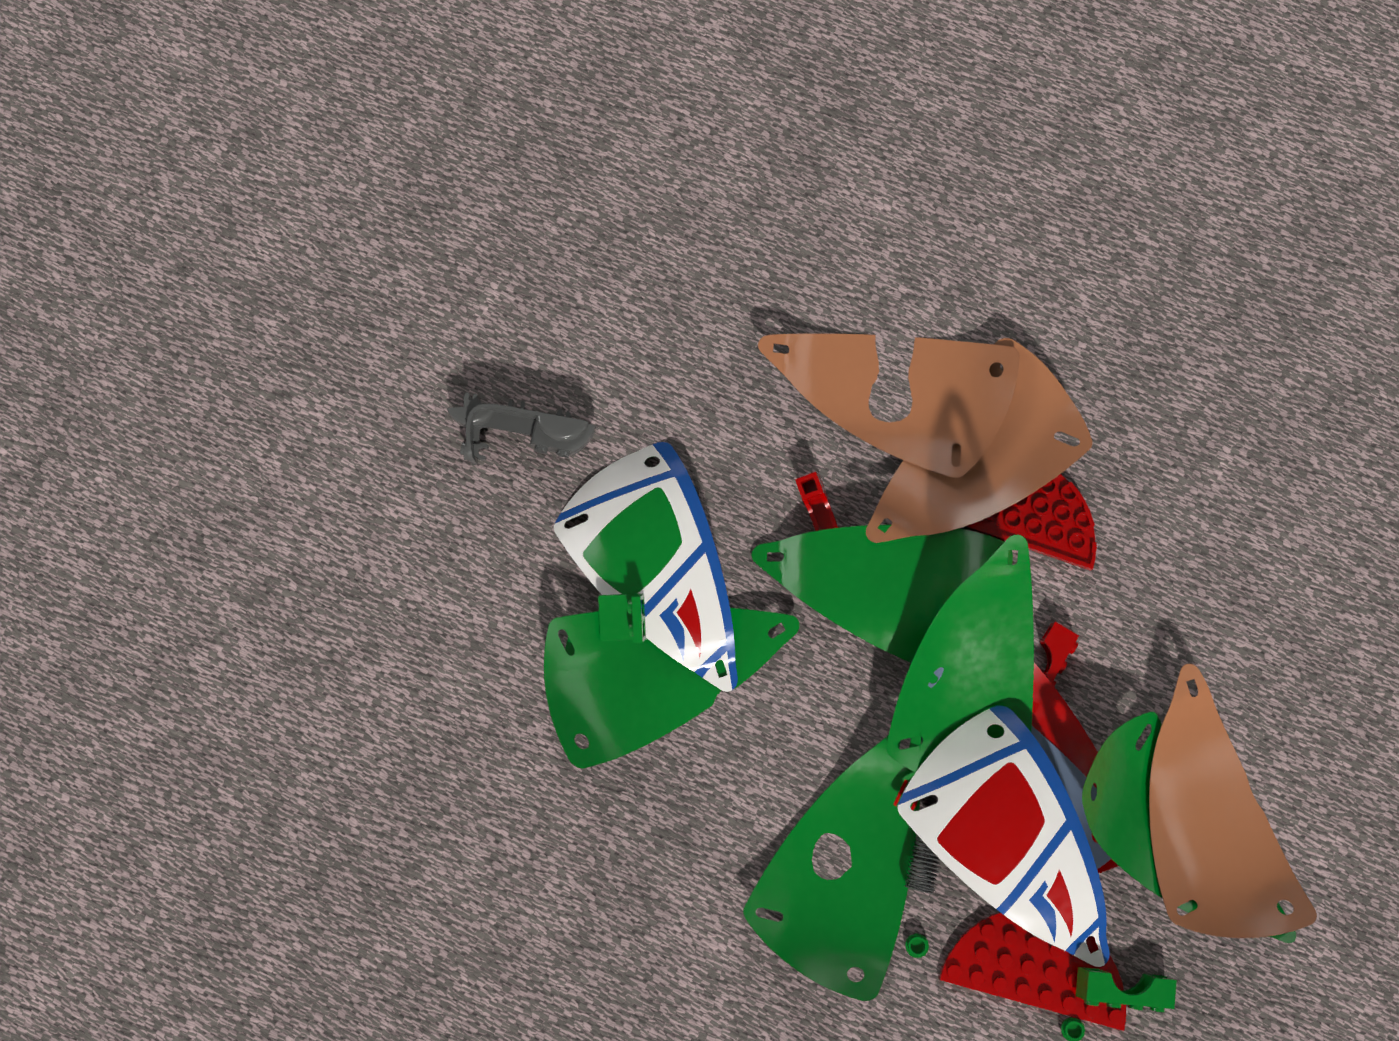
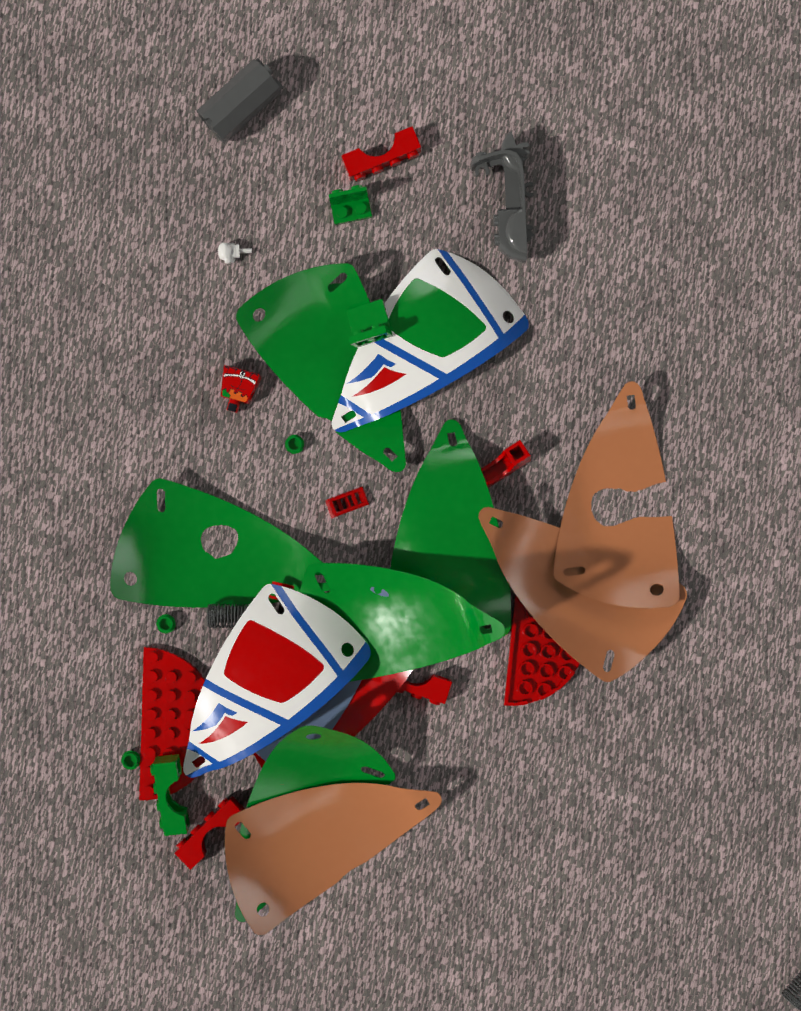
camera: 75 degrees right, 10 degrees up
(326, 706) = (240, 100): none -> dark grey brick
(436, 588) = (360, 164): none -> red arch
(481, 609) = (350, 205): none -> green bracket
(496, 761) = (230, 251): none -> white piece
(656, 789) = (238, 386): none -> red torso
(738, 739) = (294, 444): none -> green plate
(825, 713) = (329, 502): none -> red slope
(1196, 978) = (193, 849): none -> red arch

